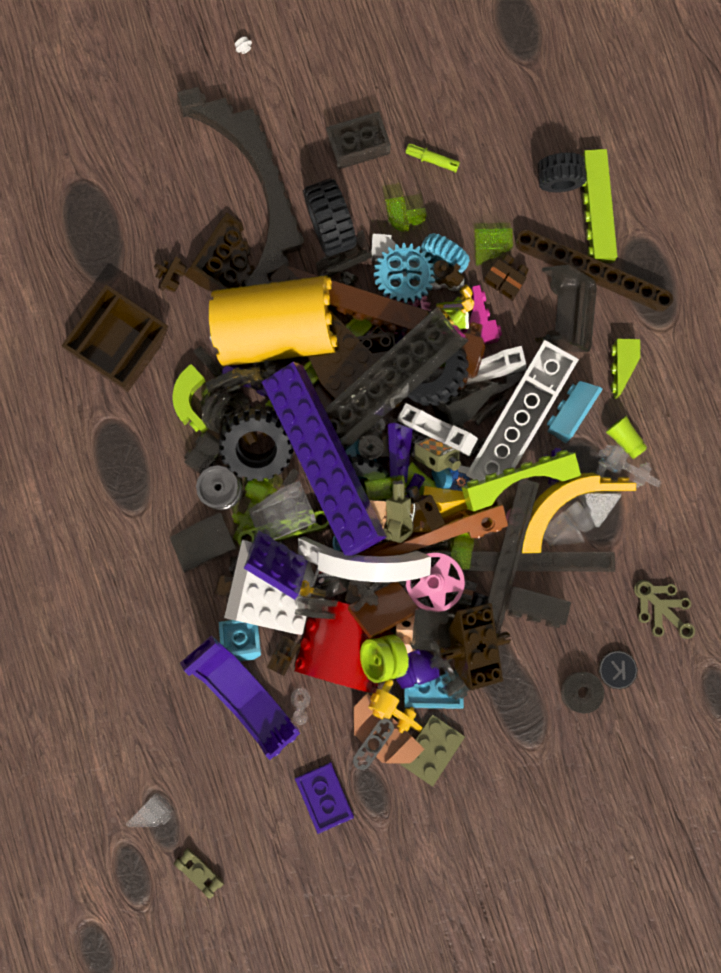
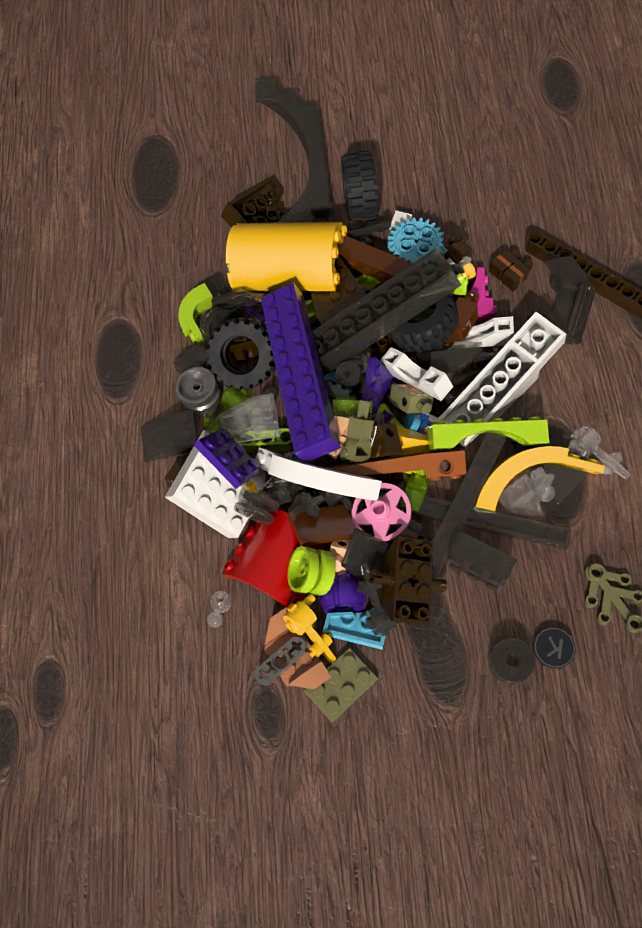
camera: 20 degrees right, 15 degrees down
(116, 338) = (145, 252): dark brown slope -> none
(152, 813) = (40, 679): clear slope -> none
(175, 267) = (206, 211): dark brown hips -> none
(199, 873) = (67, 754): olive plate -> none
(240, 639) = (176, 532): medium azure slope -> none
(242, 695) = (158, 573): dark purple panel -> none
(243, 45) = (321, 61): white plate -> none
(283, 655) = (214, 554): dark brown hips -> none
(324, 798) = (217, 708): dark purple tile -> none
(358, 140) = (400, 140): clear smoke brick -> none
(400, 217) = (425, 206): clear neon green brick -> none
(432, 157) = (464, 166): lime axle -> none
(444, 249) = (457, 225): medium azure gear -> none
(491, 243) = (503, 239): clear neon green wing -> none
(561, 172) = (579, 190): black tyre -> none
(573, 410) = (553, 390): medium azure slope -> none
(599, 207) = (609, 225): lime brick -> none
(626, 356) = (613, 355): lime slope -> none
(627, 437) = (601, 421): lime plant -> none

